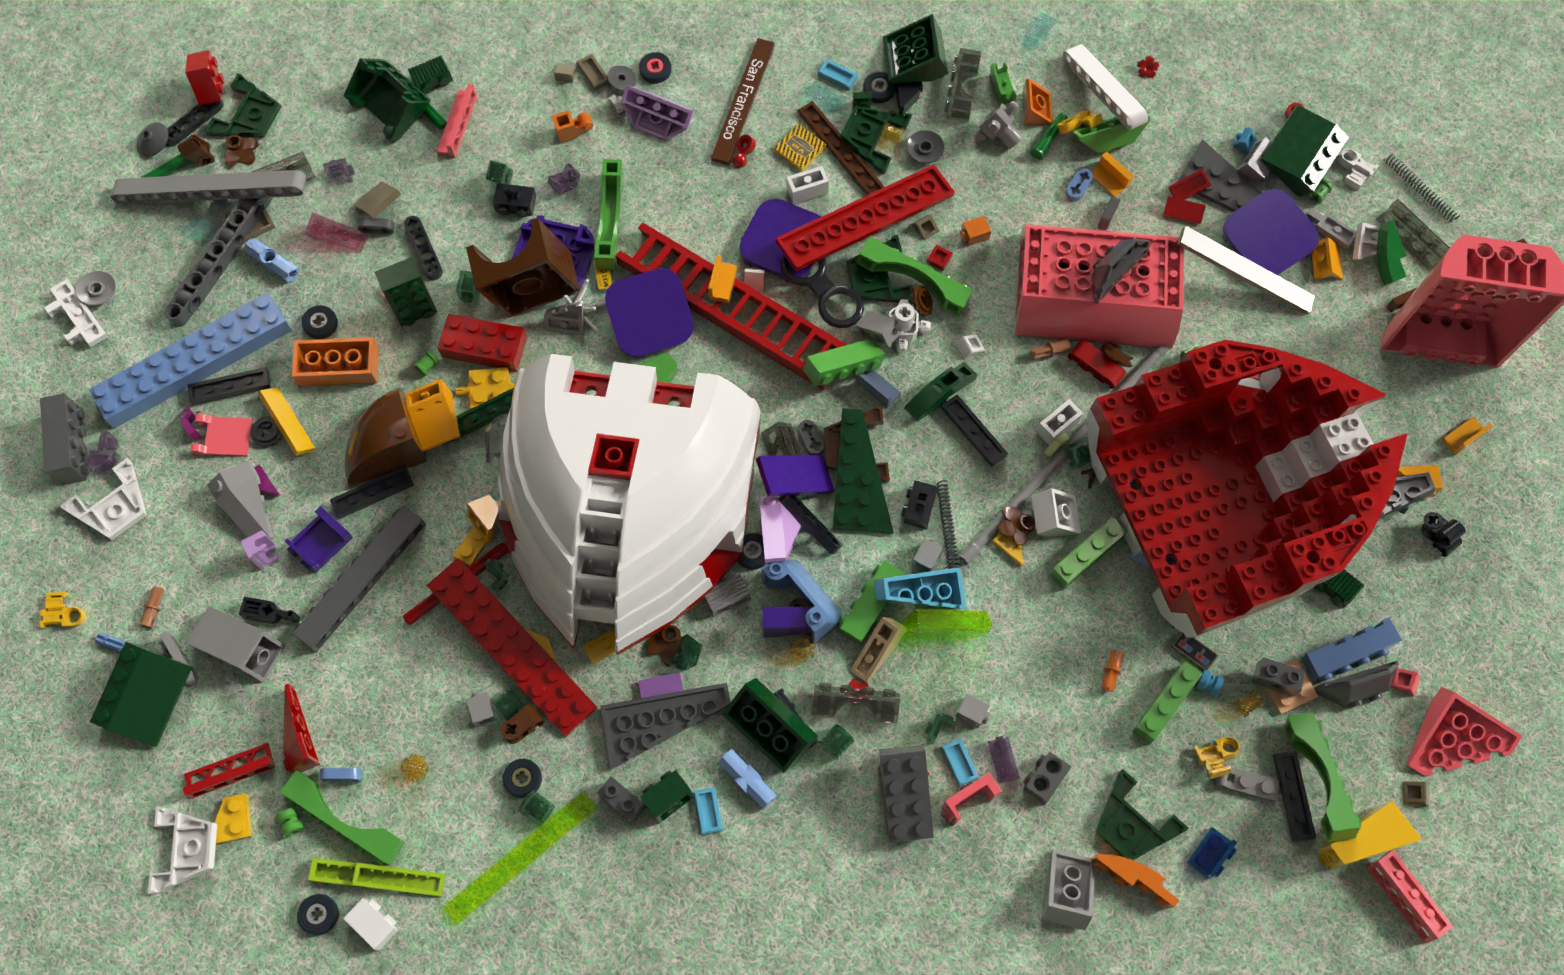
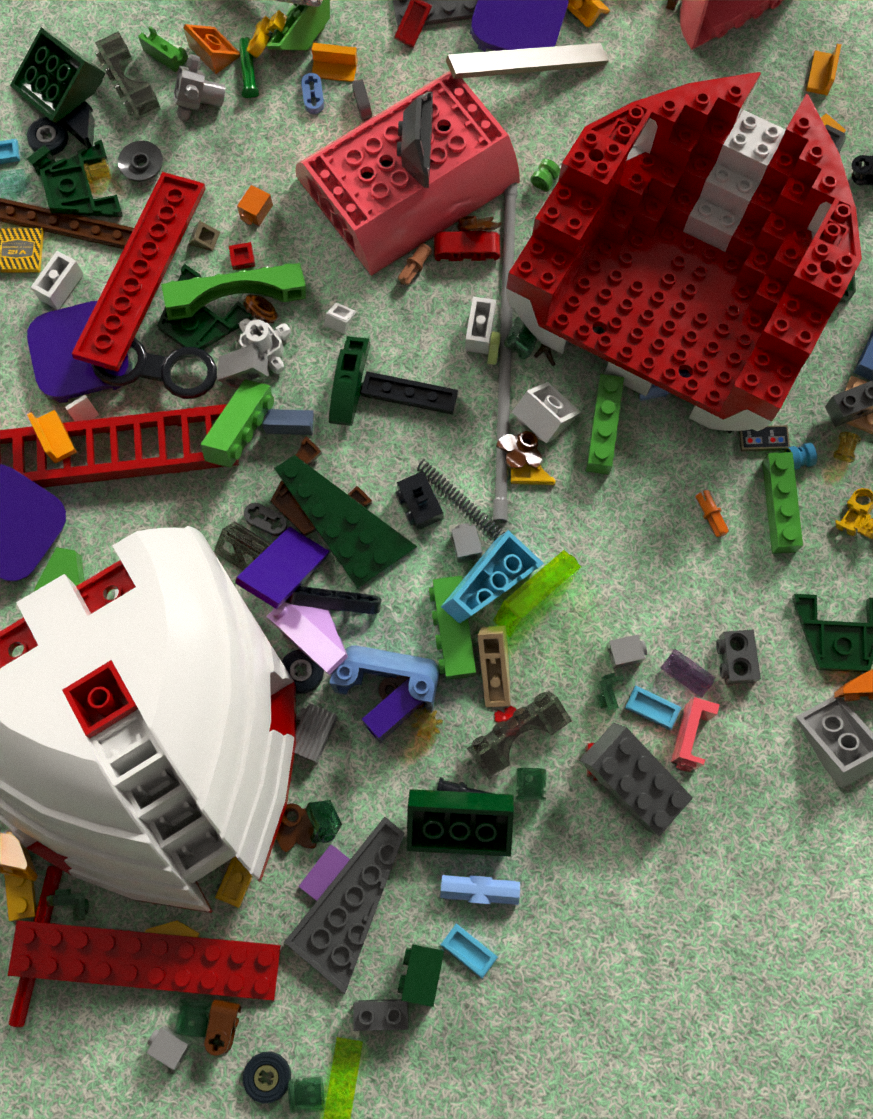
camera: 40 degrees left, 5 degrees up
(1184, 210) = (425, 47): red tile -> none

